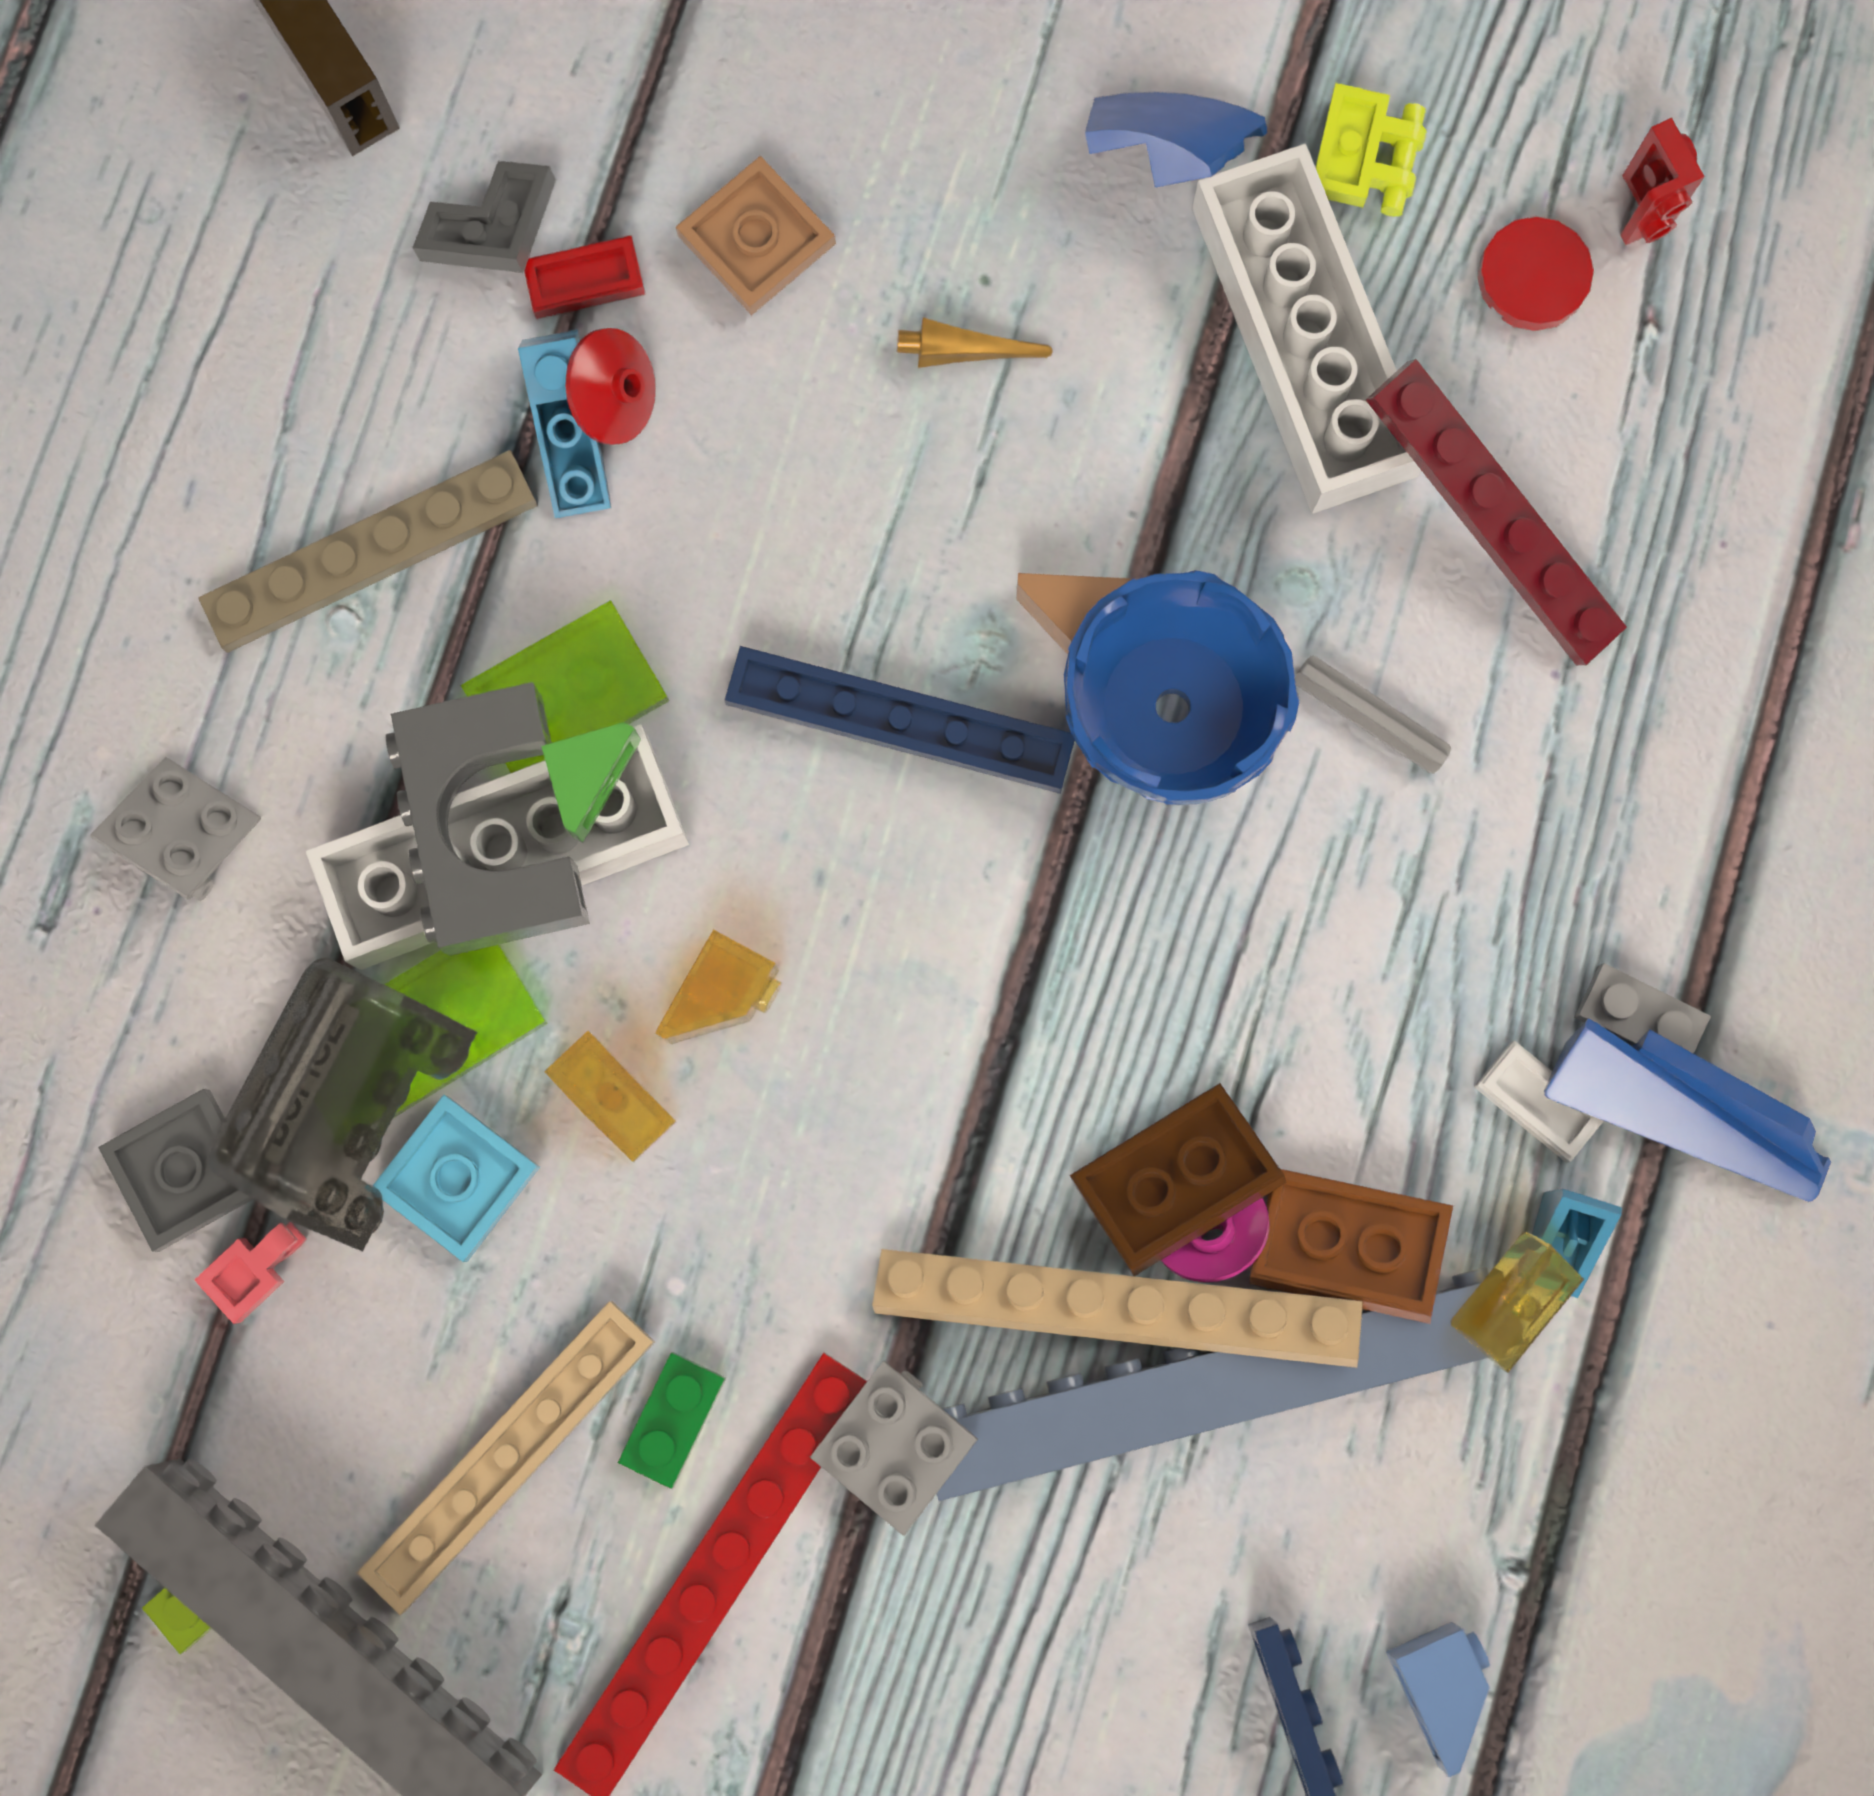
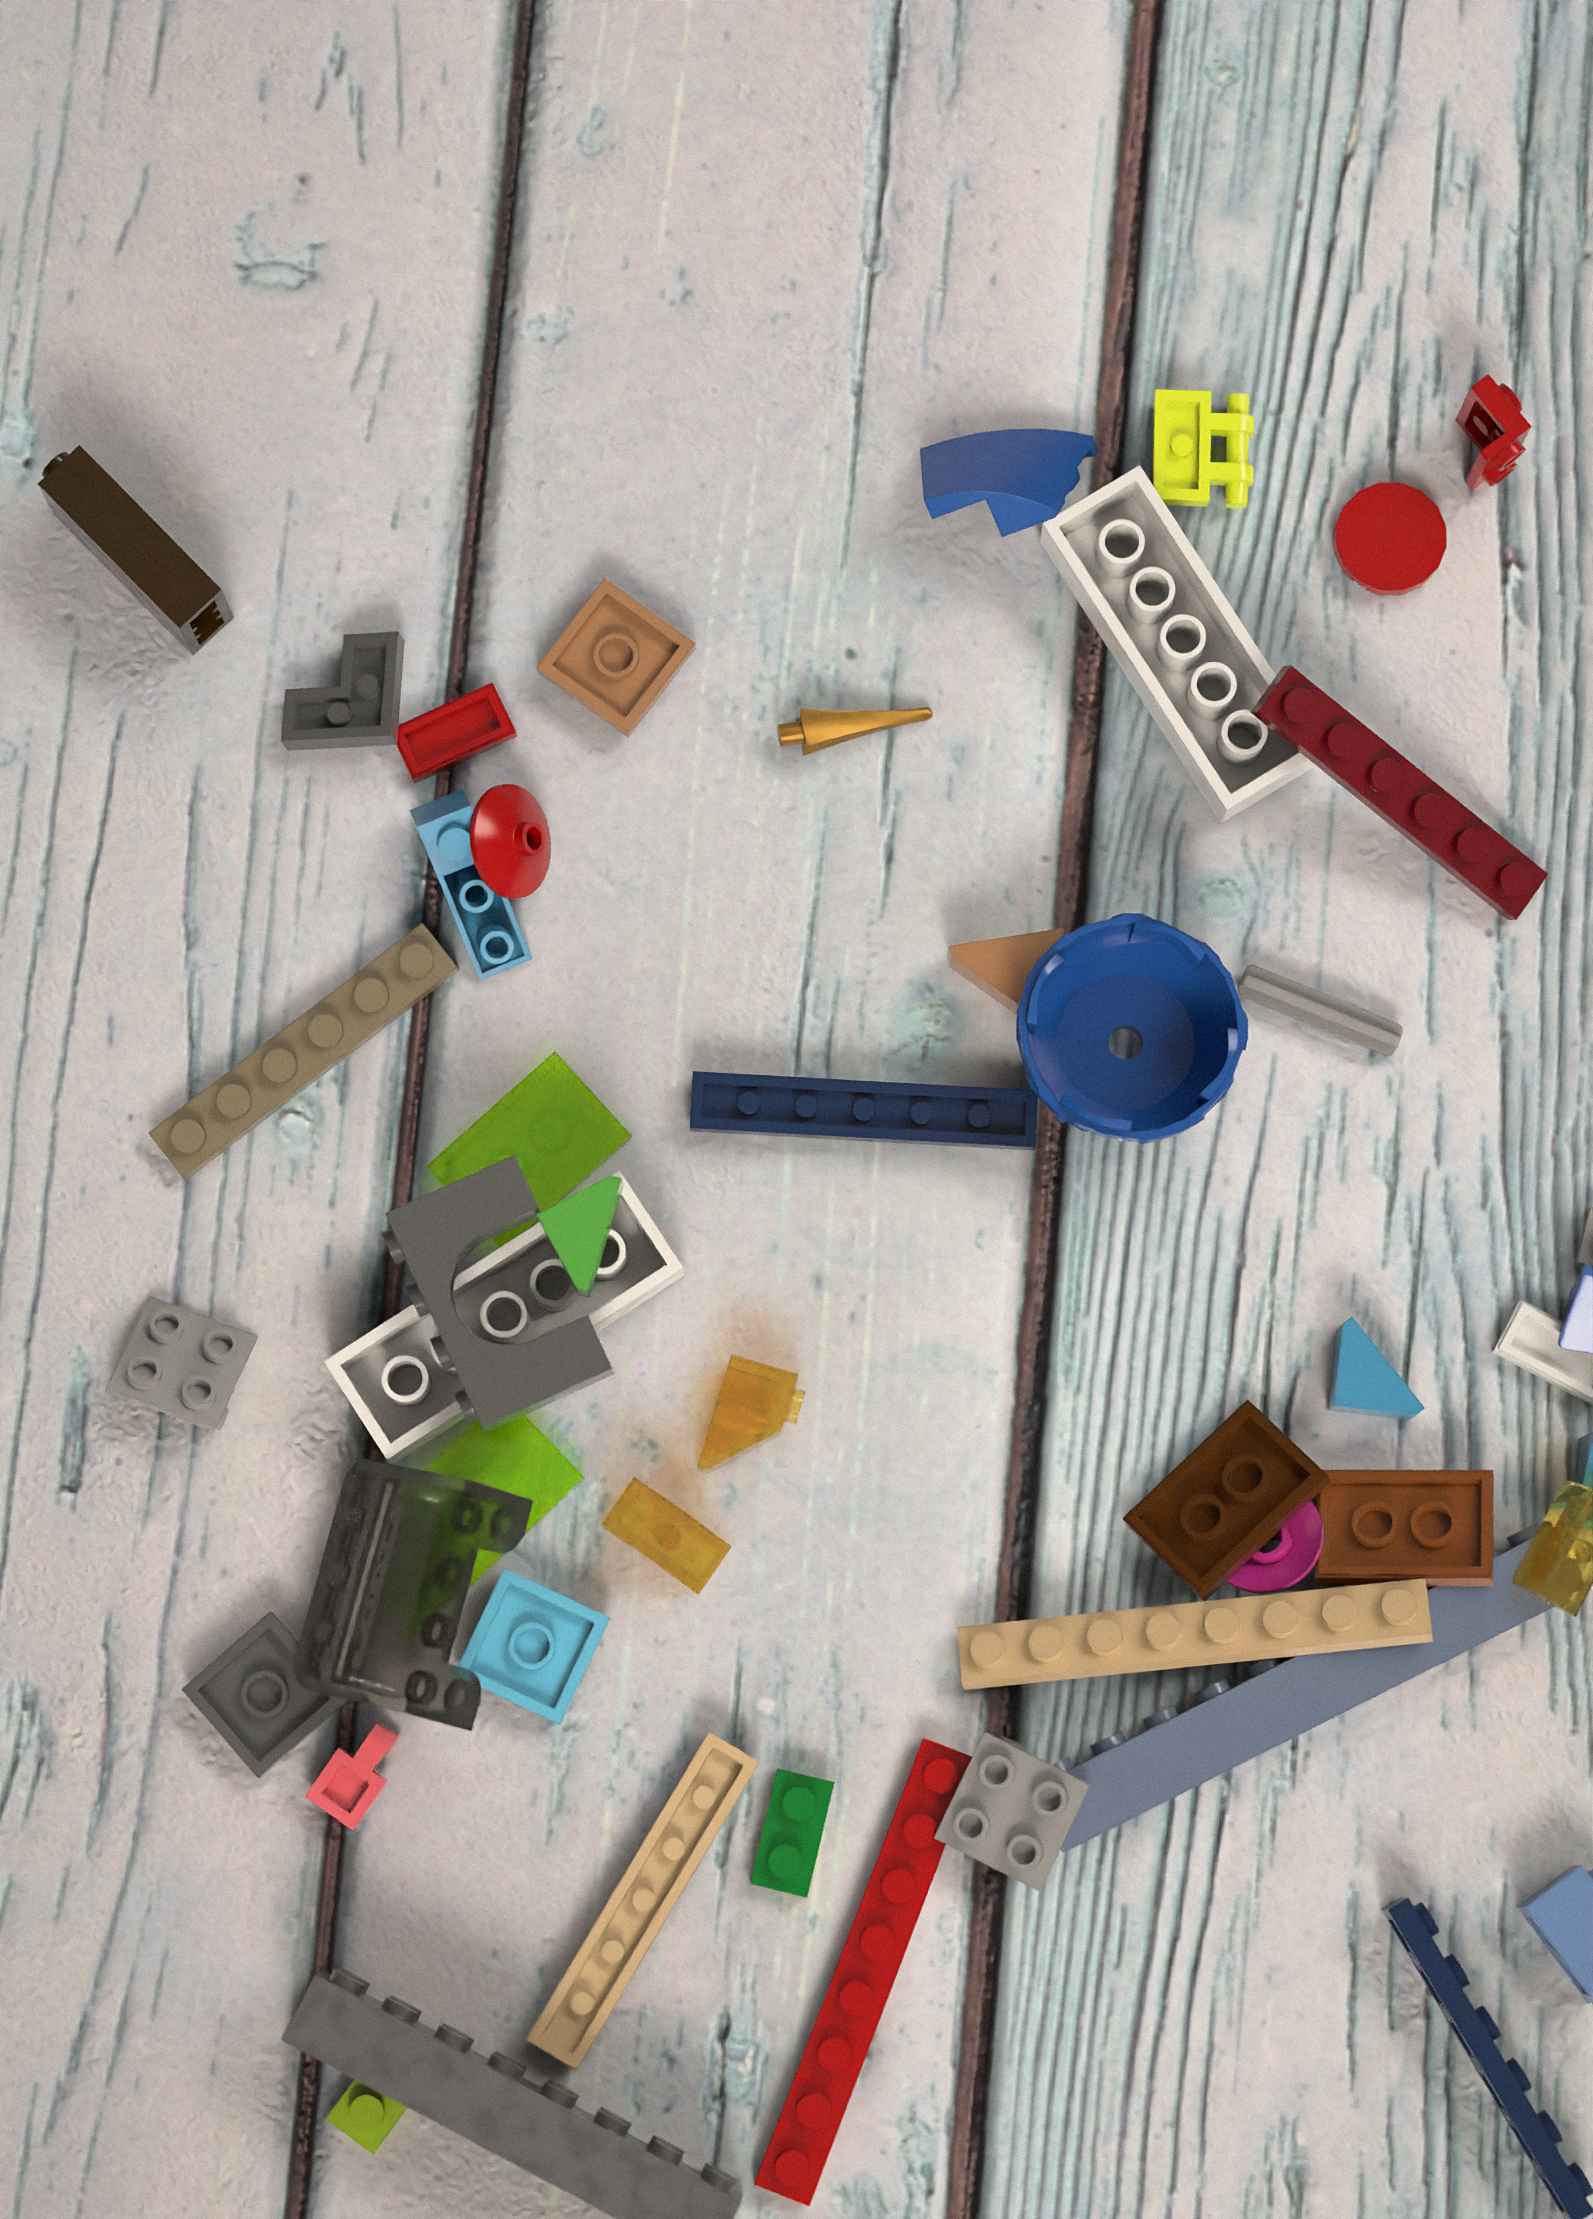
camera: 15 degrees left, 0 degrees up
(1342, 1087) = (1365, 1380): none -> dark azure slope

